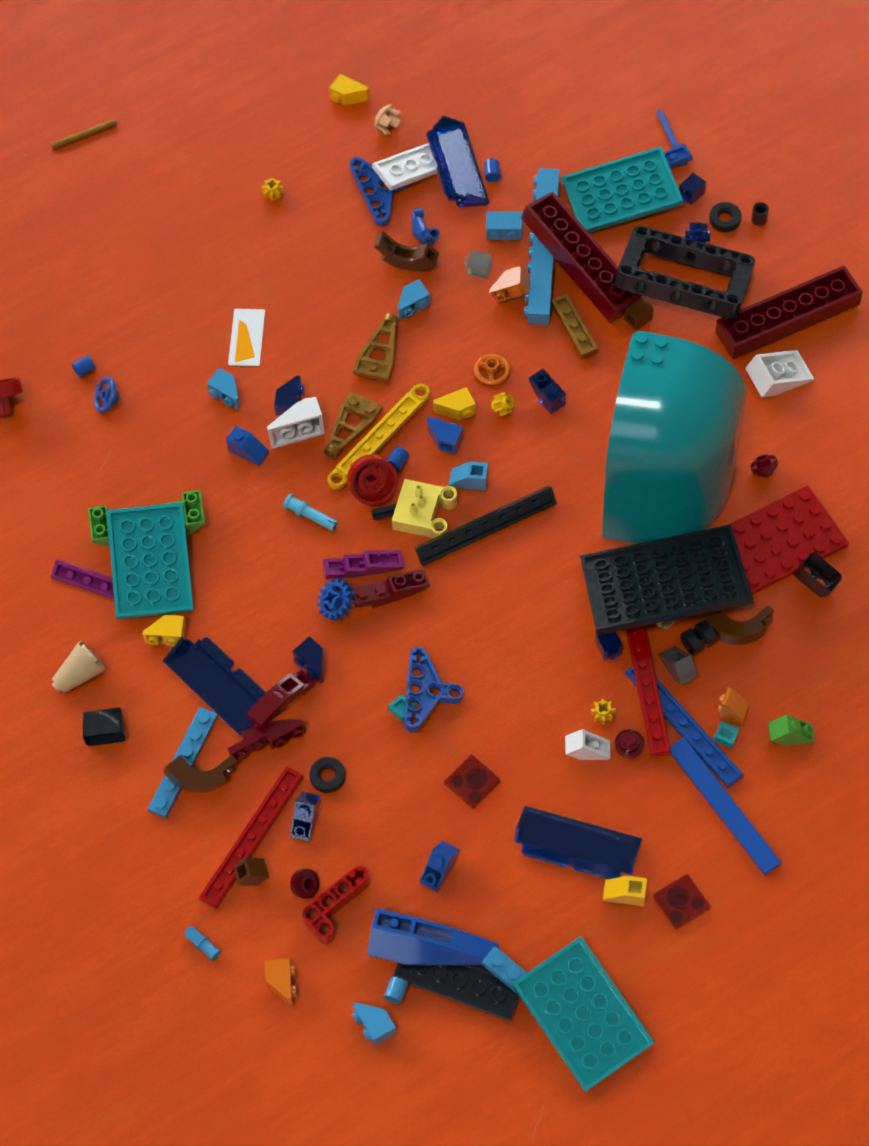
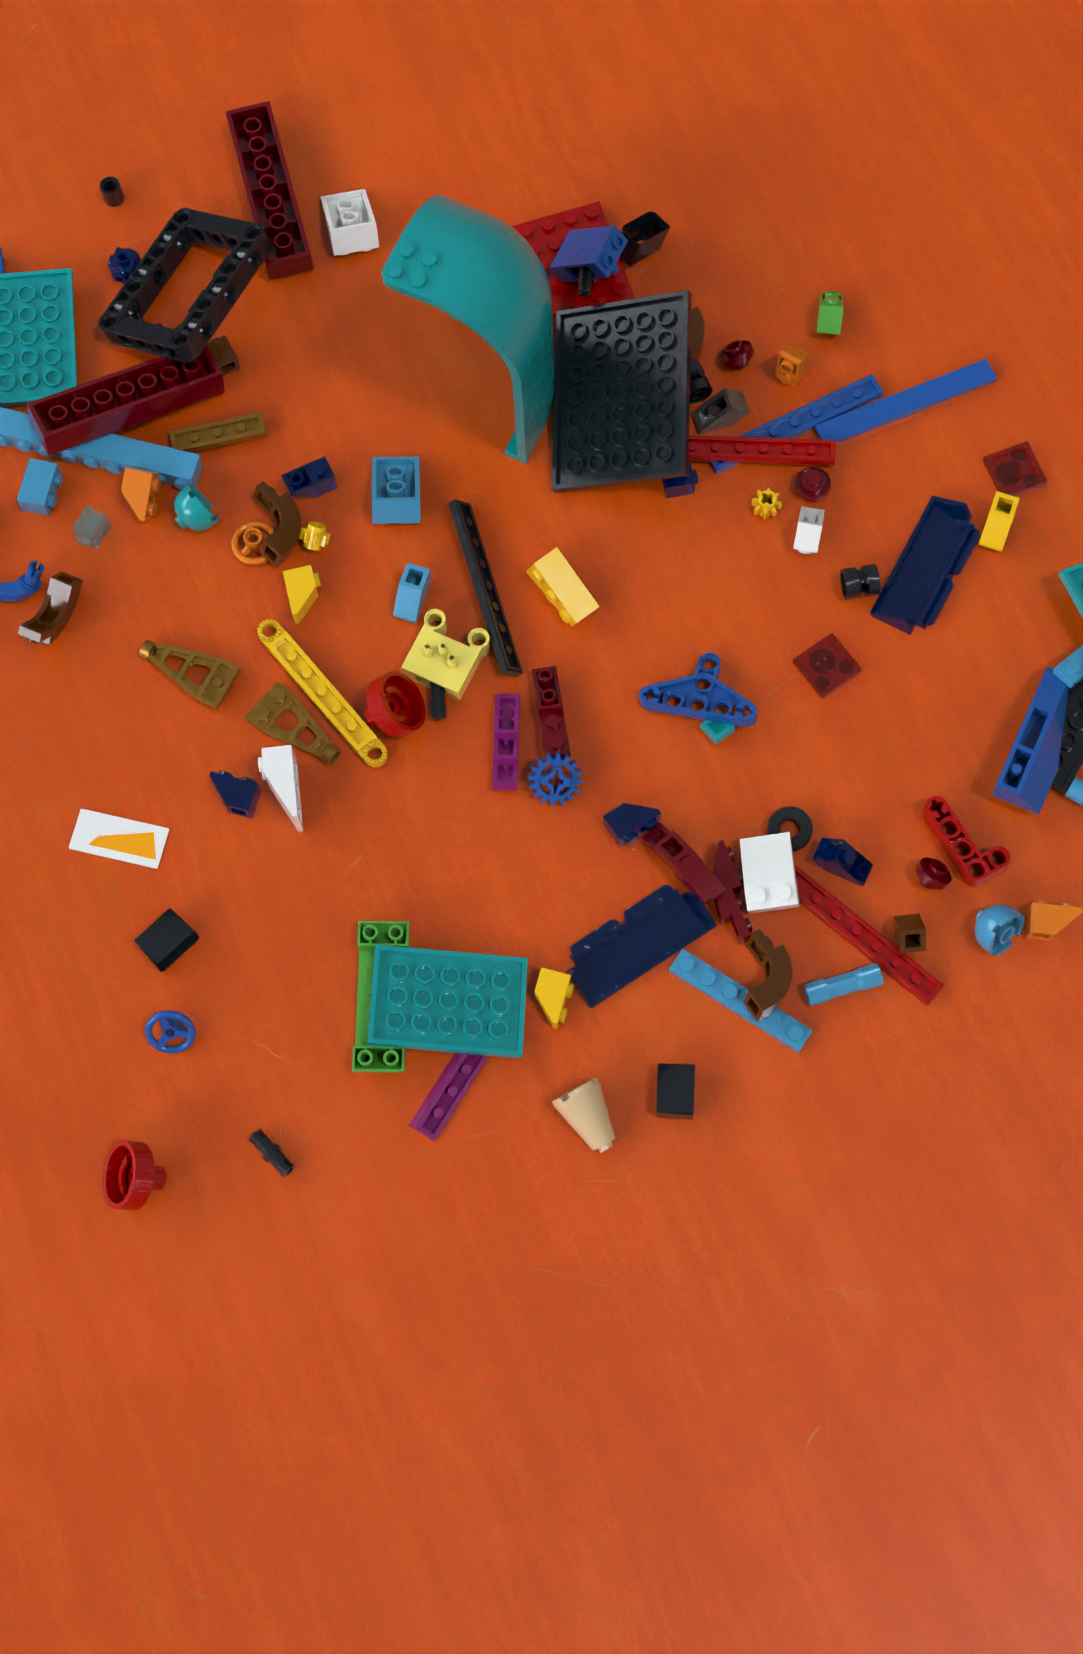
camera: 80 degrees left, 10 degrees up
(28, 476) = (272, 1153): none -> black pin
(83, 366) = (111, 1058): blue beam -> none
(172, 378) = (166, 939): none -> black piece
(202, 943) = (988, 1007): dark azure axle -> none
(204, 831) = (826, 989): none -> dark azure axle
(223, 386) = (200, 872): dark azure slope -> none
(246, 446) = (297, 858): blue slope -> none
(265, 937) = (997, 926): none -> dark azure cylinder
(283, 761) = (769, 873): none -> white slope
(303, 509) = (409, 802): medium azure pin -> none
(398, 458) = (361, 674): blue beam -> none
(413, 298) = (122, 616): dark azure slope -> none
(439, 865) = (933, 717): blue slope -> none
(445, 435) = (342, 613): blue slope -> none
(494, 384) = (287, 521): none -> reddish brown arch
(494, 575) = (562, 587): none -> yellow wedge
(507, 323) = (194, 510): none -> teal cylinder
(547, 790) = (860, 581): none -> black wheel
(554, 449) = (396, 490): none -> dark azure slope
(692, 188) = (49, 255): clear blue brick -> none
(725, 207) = (102, 219): black tyre -> none
(726, 734) = (820, 380): teal plate -> none
(732, 666) = (737, 354): none -> dark red plate
(779, 534) = (589, 256): none -> blue piece

